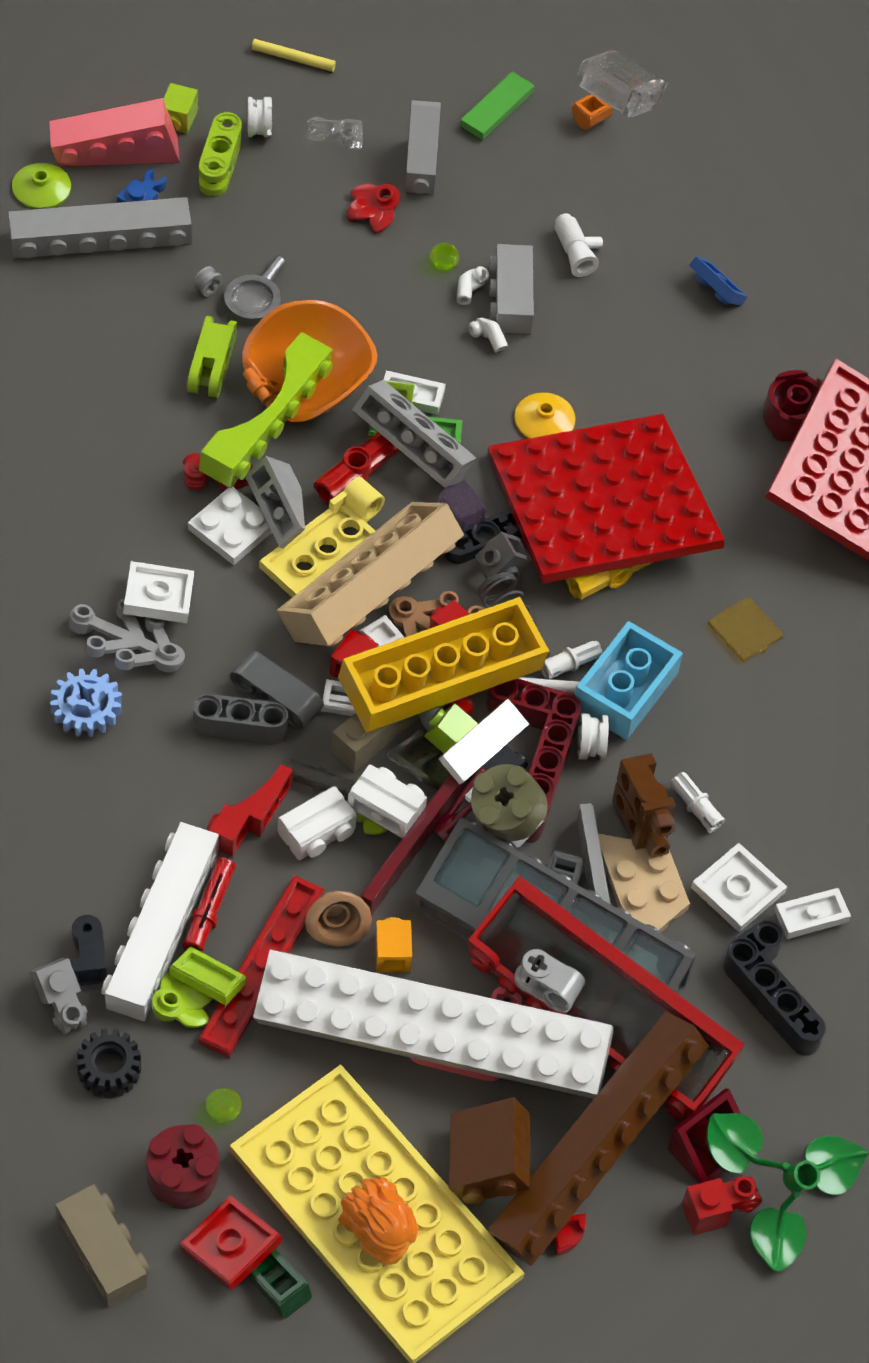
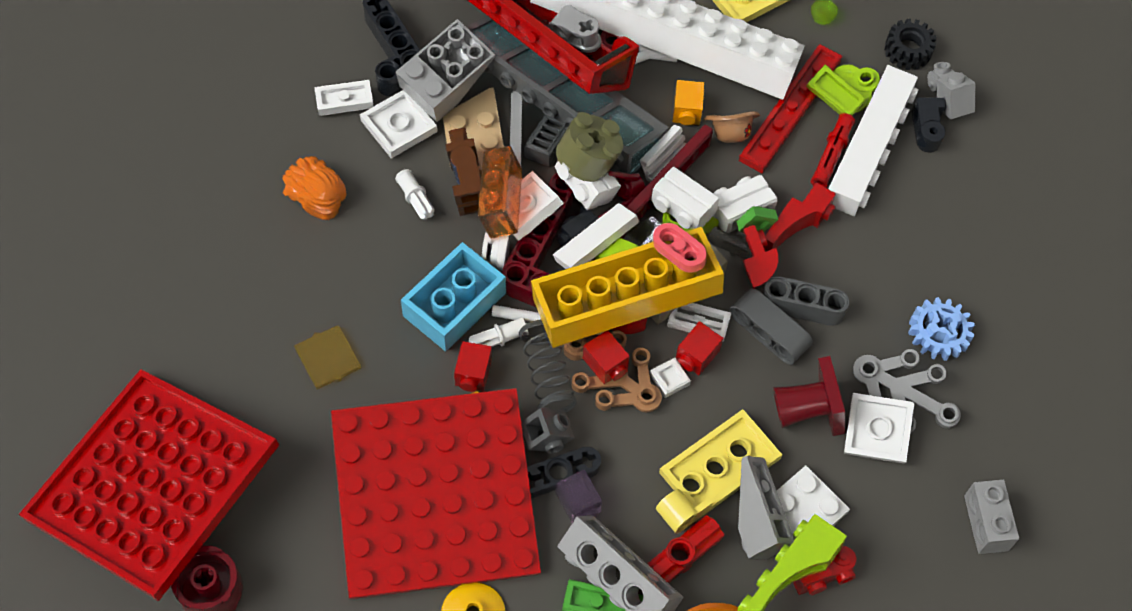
camera: 170 degrees left, 5 degrees up
(44, 520) = (991, 516): none -> light grey brick
(220, 605) = (813, 400): none -> dark red plant
(297, 745) = (762, 264): none -> red brick
(301, 785) = (760, 217): none -> bright green plate
(370, 573) = (678, 416): tan brick -> none
(397, 673) = (682, 248): none -> coral plate
(410, 883) = (662, 152): none -> white tile
(569, 770) = (536, 204): none -> white plate
(591, 619) = (473, 366): none -> red brick
(601, 765) = (500, 192): none -> clear orange brick
(702, 913) = (444, 70): none -> light grey slope
(813, 796) = (315, 187): none -> orange hair

